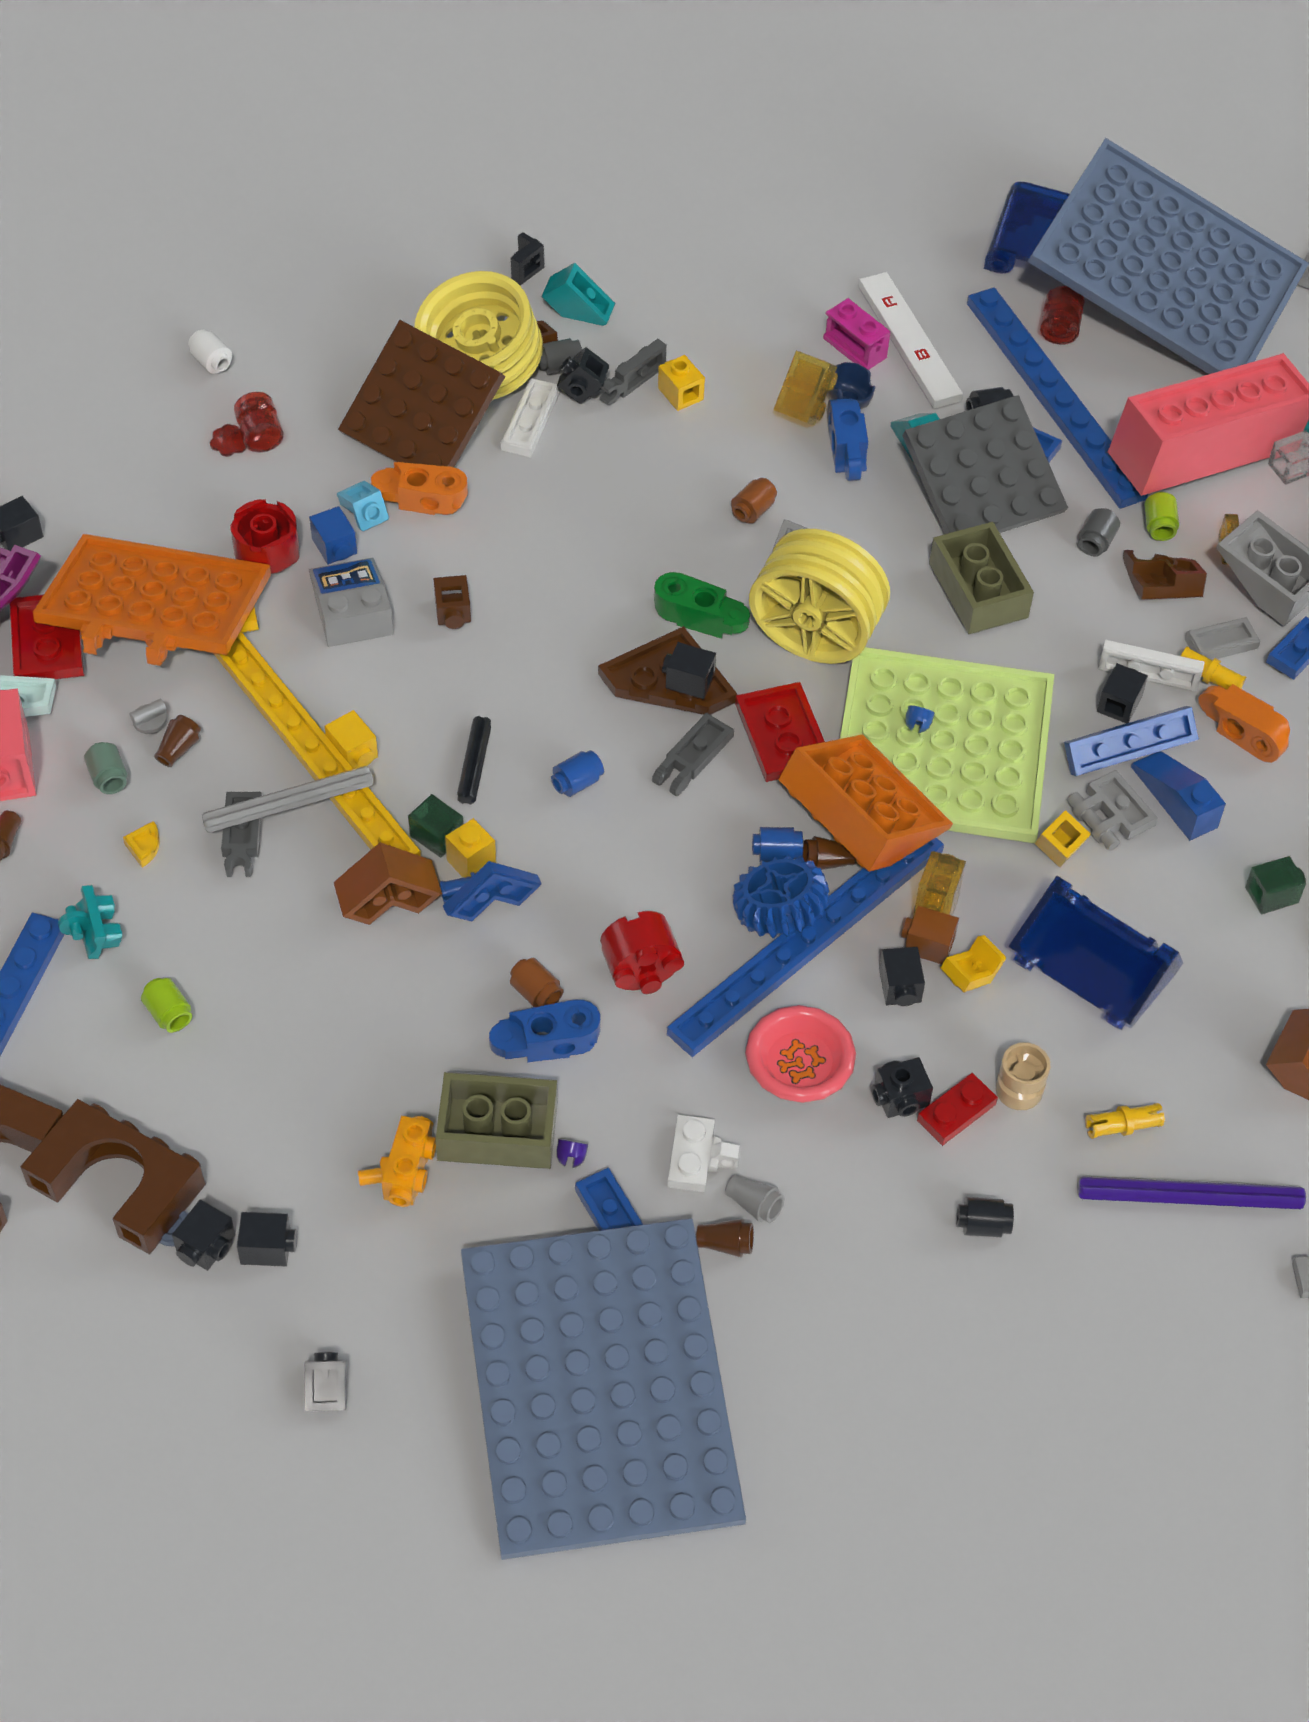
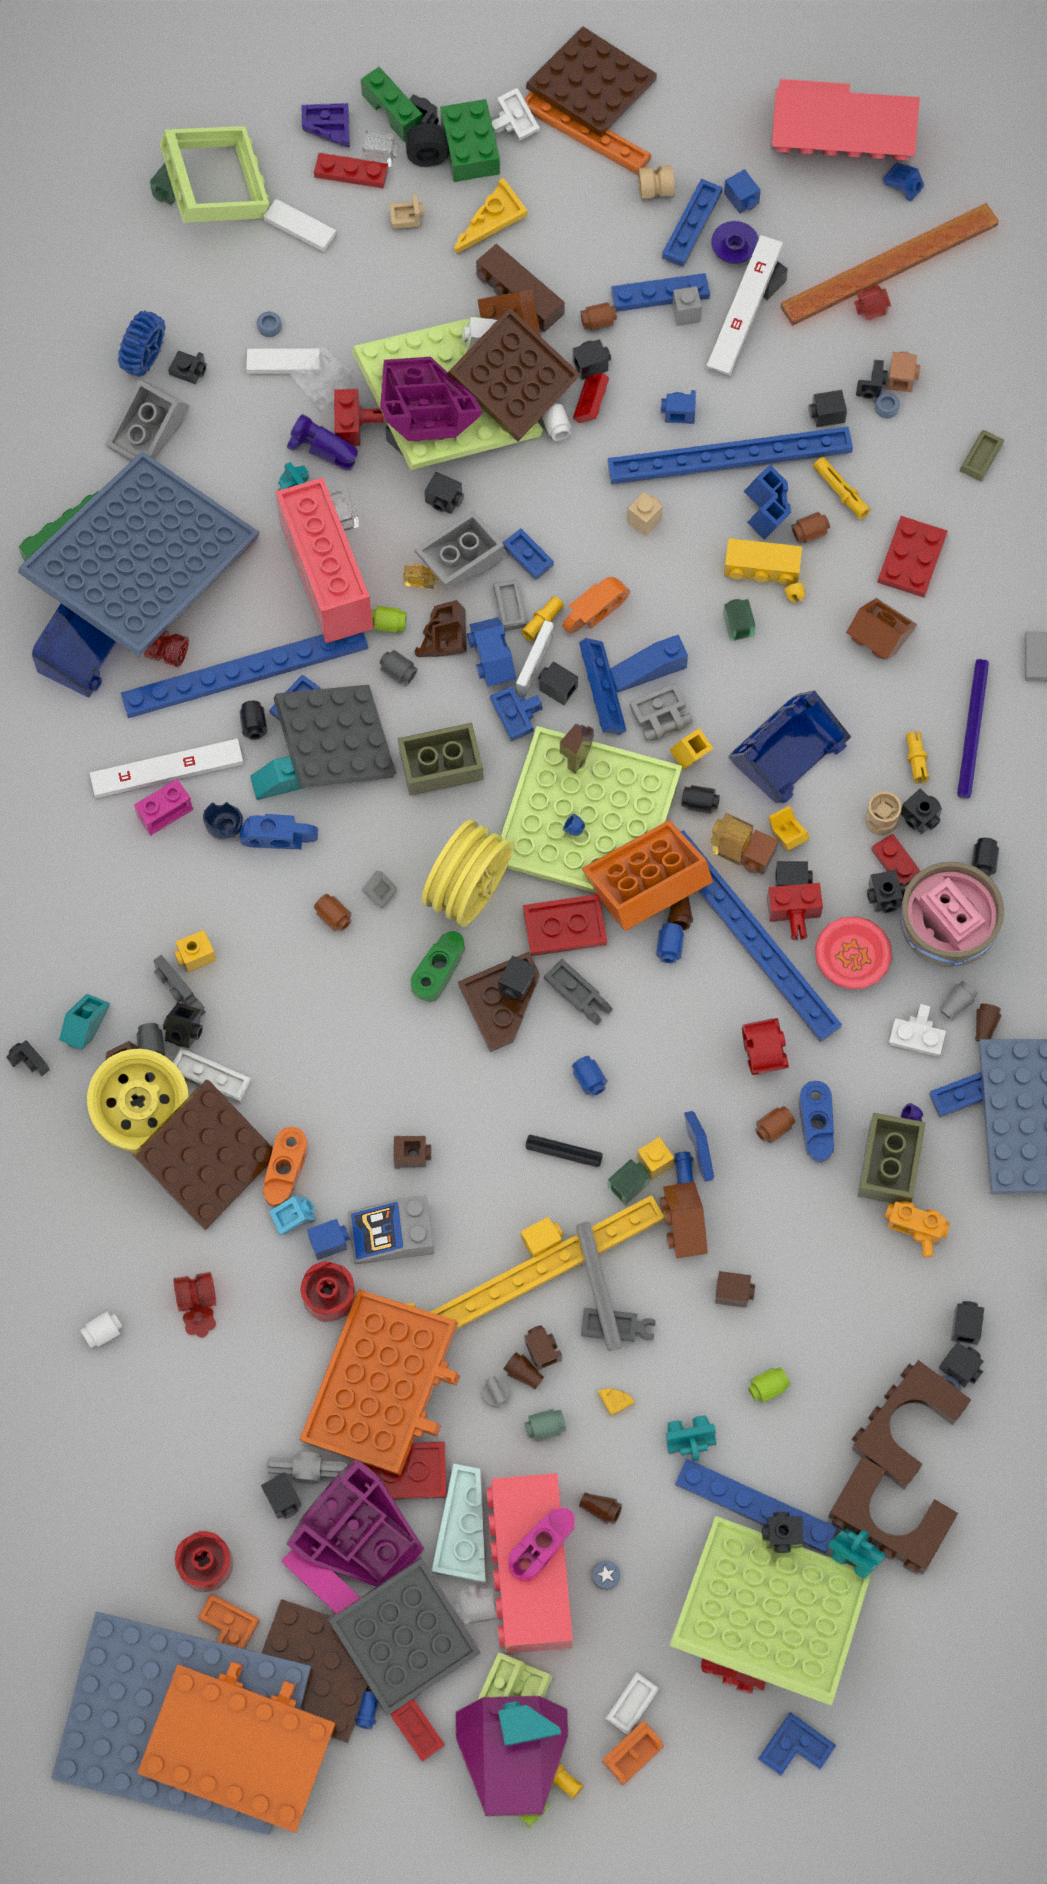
camera: 80 degrees left, 15 degrees up
(51, 543) = (305, 1467): none -> light grey axle
(206, 754) = (542, 1347): none -> reddish brown brick
(297, 953) = (734, 1289): none -> reddish brown brick
(781, 896) = (712, 948): blue gear -> none
(806, 388) = (228, 853): clear yellow brick -> none
(860, 978) = (796, 905): none -> red brick
(903, 1147) = (933, 926): none -> bright pink piece
(995, 862) = (700, 799): none -> black brick
(1029, 701) = (577, 746): none -> reddish brown slope
(1037, 1124) = (921, 811): none -> black brick
(1070, 654) = (515, 712): none -> blue hinge
(1143, 612) = (494, 654): none -> blue brick

